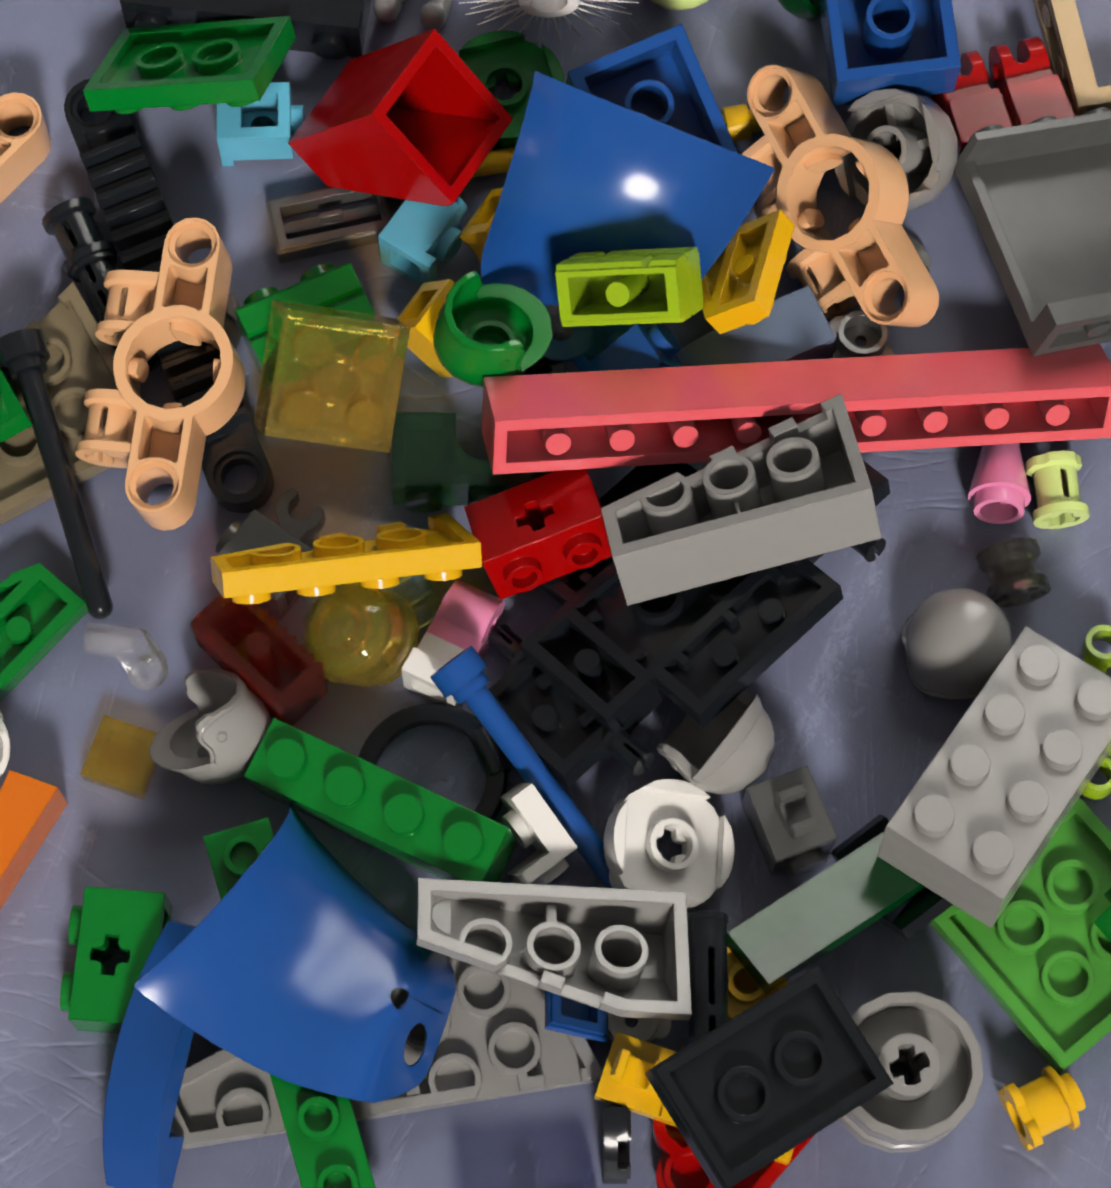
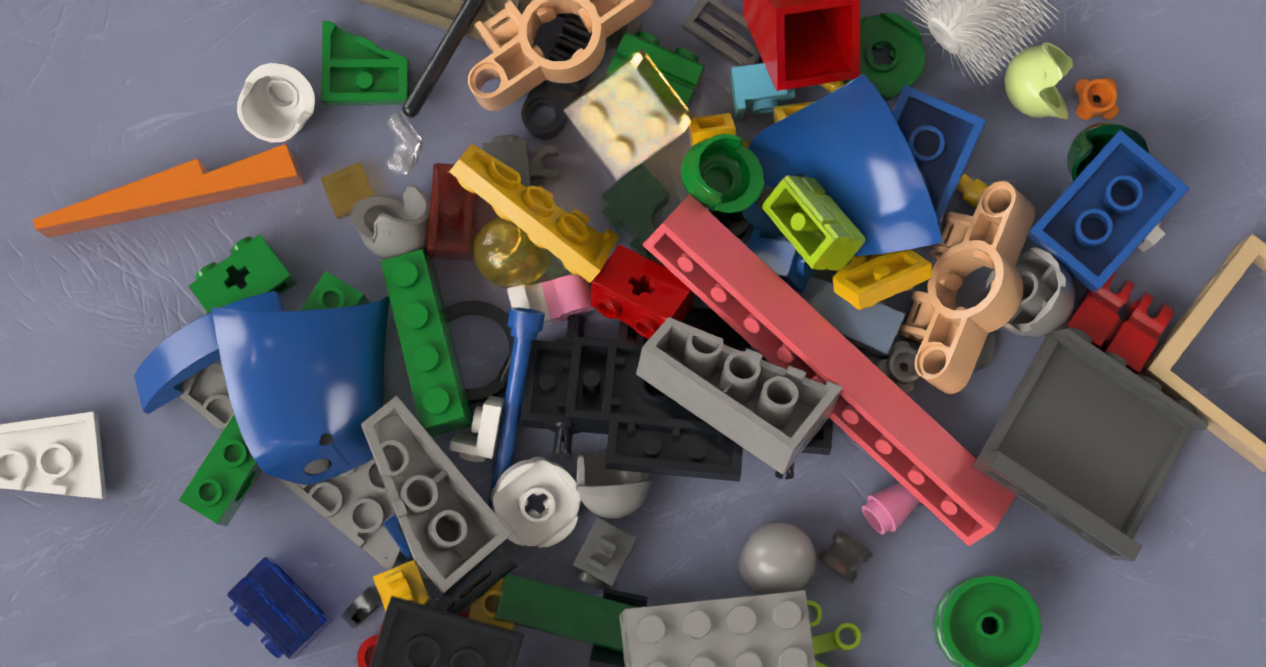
camera: 50 degrees right, 10 degrees up
(1057, 490) = (914, 540): yellowish green bush -> none

